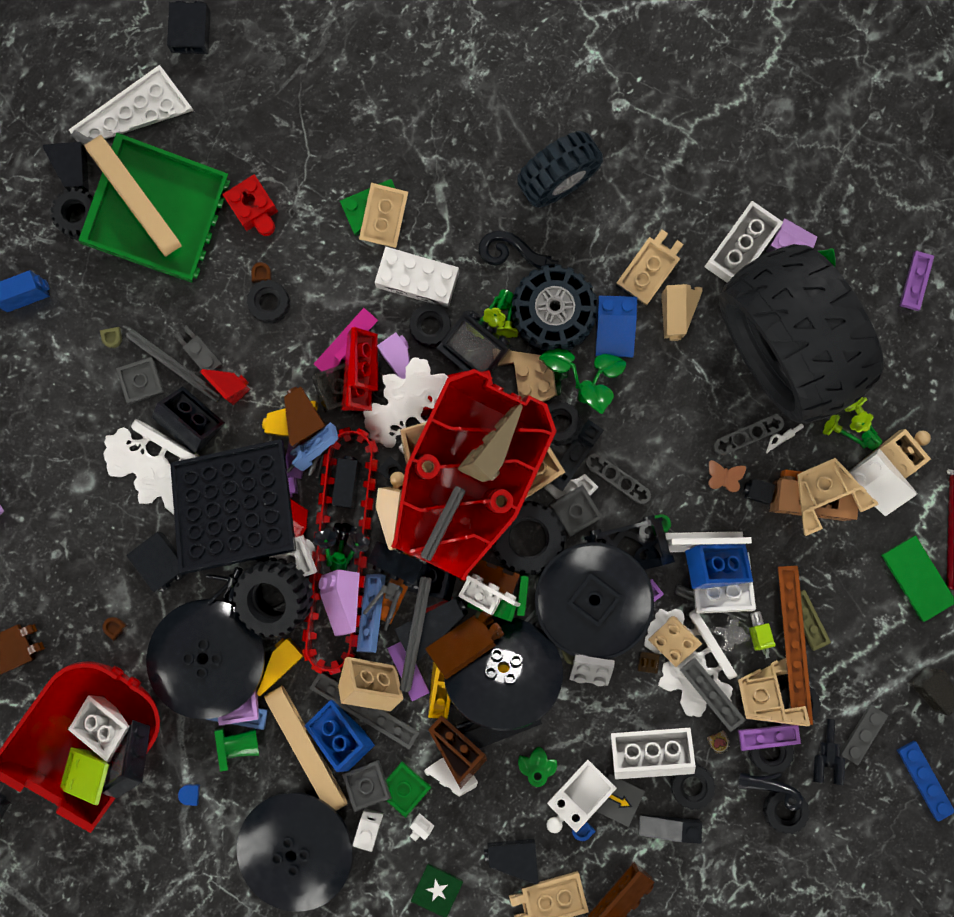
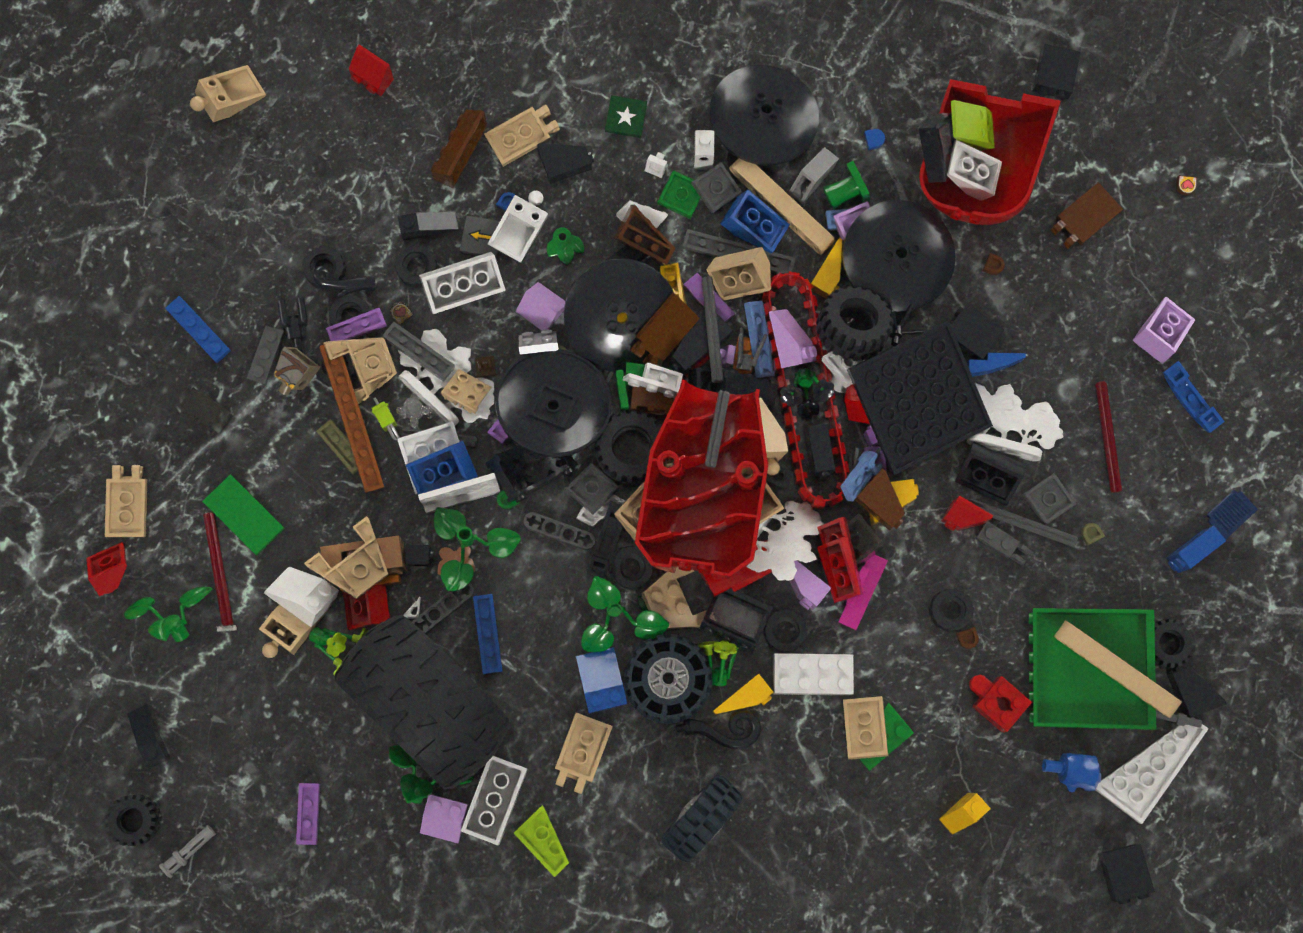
camera: 155 degrees right, 5 degrees down
(62, 424) = (1108, 437): none -> dark red axle
(148, 526) = (994, 362): none -> blue slope
(203, 125) = (1075, 771): none -> blue piece
(264, 771) = (813, 175): none -> light grey slope
(316, 115) = (964, 812): none -> yellow slope
(407, 606) = (727, 355): none -> lavender tile
(481, 275) = (750, 695): none -> yellow slope
(489, 457) = (692, 498): dark tan wedge -> none
(577, 709) = (541, 306): none -> lavender slope
(678, 309) = (542, 713): tan slope -> none
(707, 197) = (542, 841): none -> lime wing
(711, 399) = (487, 634): none -> blue plate
(721, 514) = (452, 522): none -> green plant
(817, 450) = (368, 609): none -> red slope
(840, 709) = (294, 370): none -> torso

